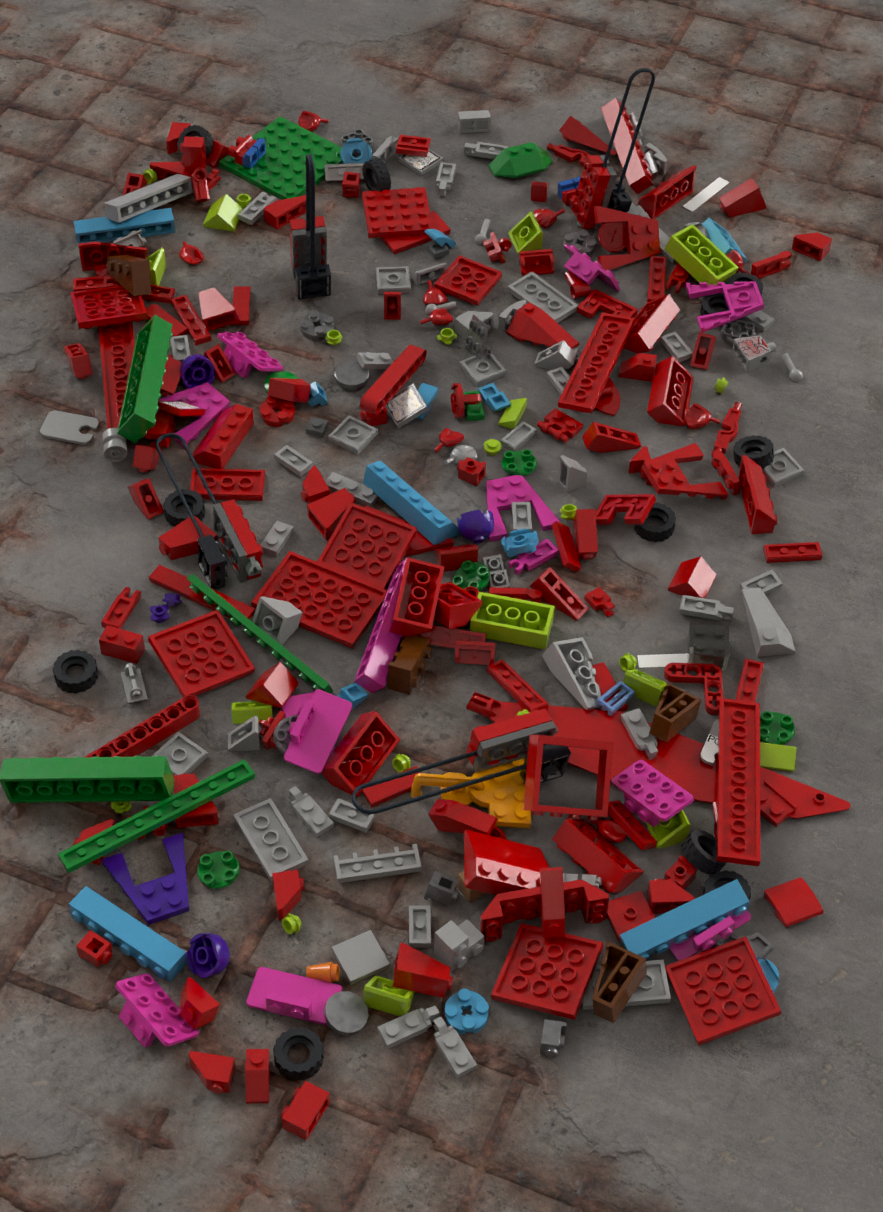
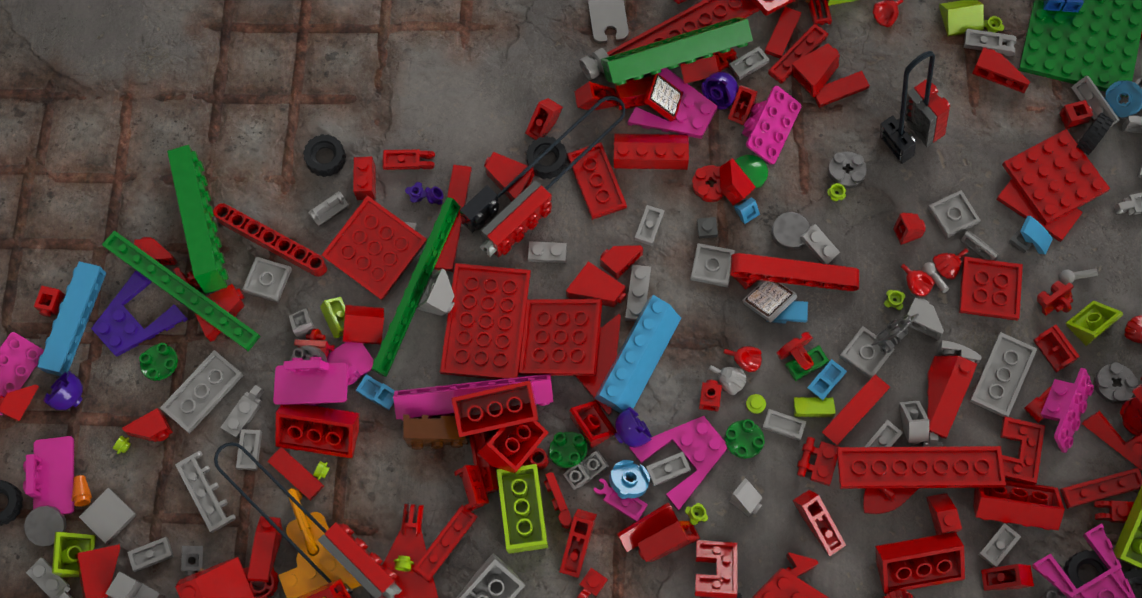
camera: 75 degrees right, 20 degrees up
(530, 387) = (856, 409): none -> red slope

